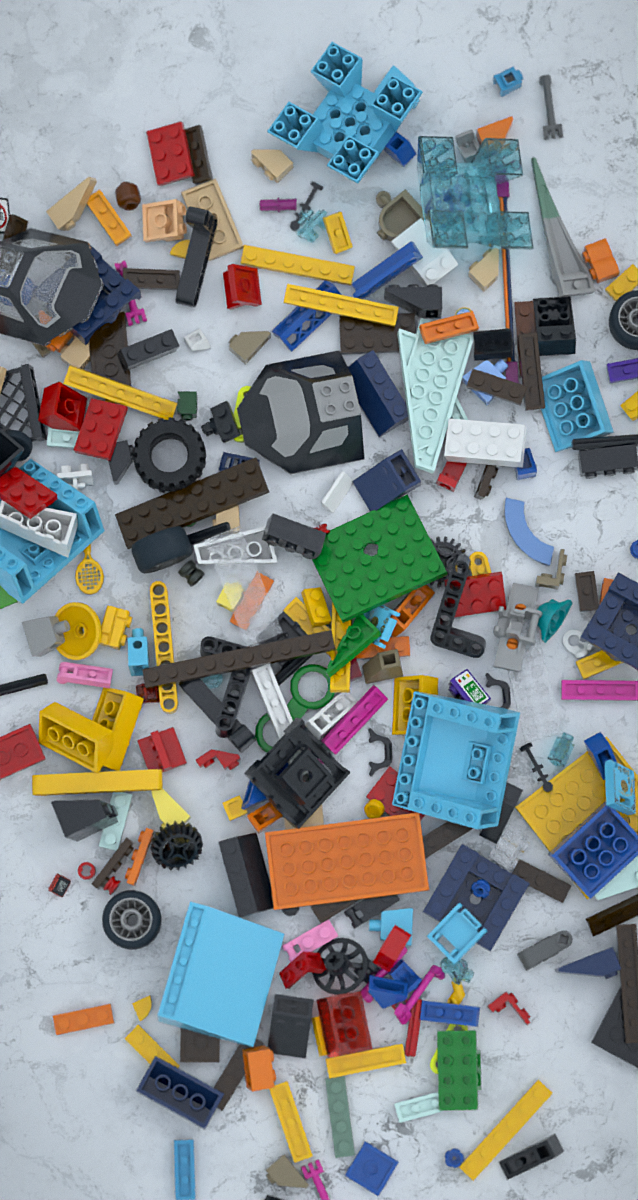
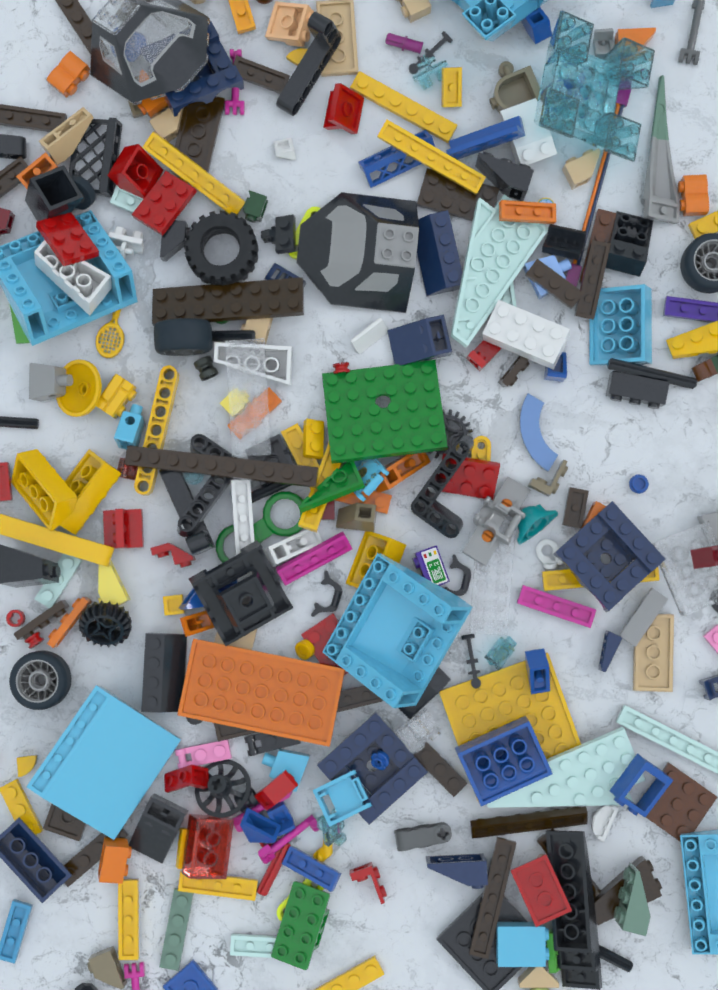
camera: 20 degrees right, 5 degrees up
(84, 675) = (74, 432): bright pink plate -> none
(148, 350) = (234, 141): black brick -> none
(248, 344) = (331, 167): dark tan slope -> none
(293, 536) = (312, 365): black brick -> none
(620, 784) = (544, 707): medium azure container -> none

